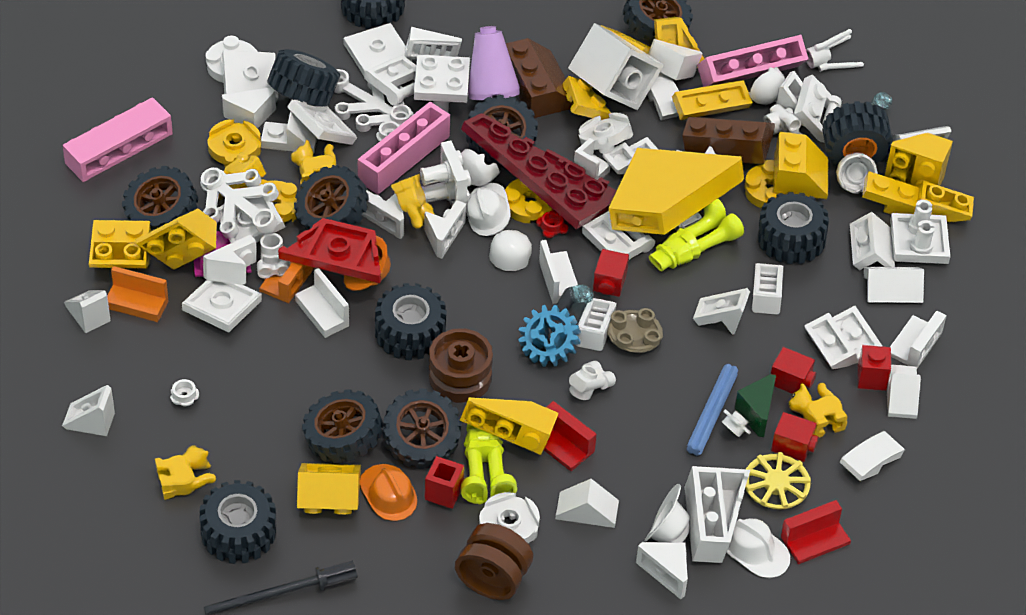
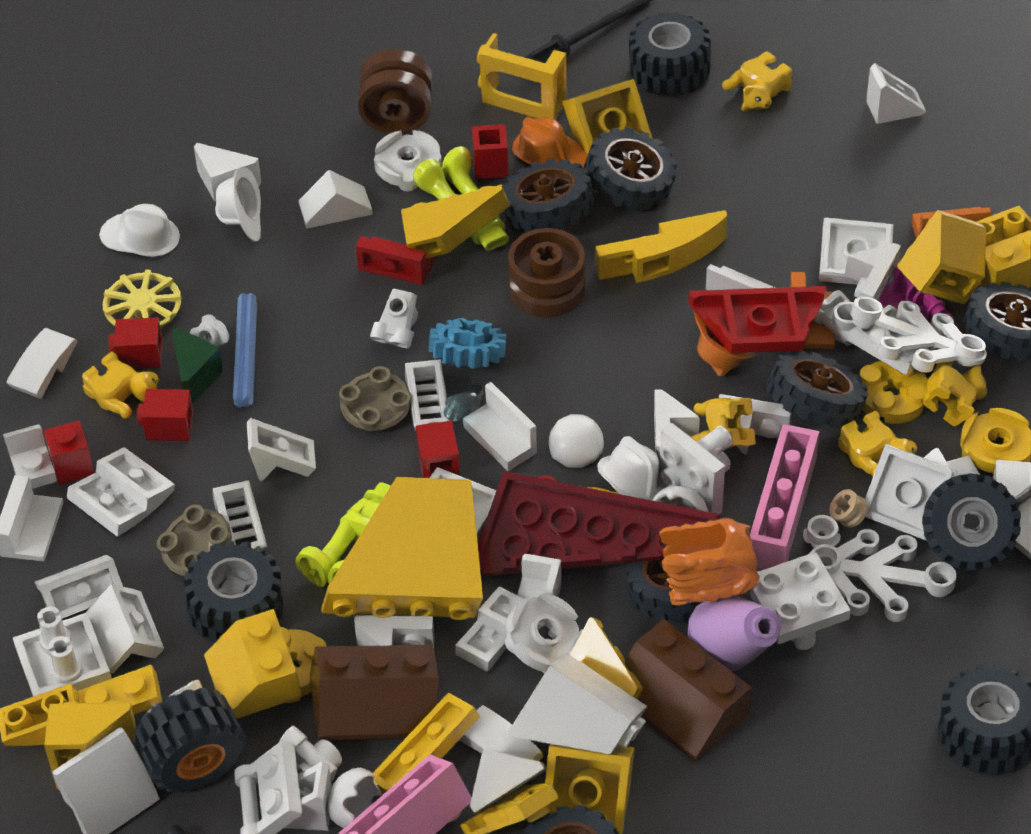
camera: 160 degrees right, 0 degrees up
(90, 309) = (988, 186): white slope -> none
(184, 393) = (819, 153): white plate -> none
(350, 354) = (656, 255): none -> yellow slope
(360, 520) = (550, 75): none -> yellow panel
(368, 131) = (856, 512): none -> tan bush
(374, 46) = (926, 655): white plate -> none
(392, 74) = (873, 600): white plate -> none
(409, 320) = (633, 299): black wheel -> none
(424, 37) = (857, 664): white slope -> none
(498, 72) = (708, 561): none -> orange piece
(713, 508) = (194, 228): white wedge -> none
(804, 278) = (190, 535): none -> dark tan dish
(814, 532) = (82, 263): red panel -> none

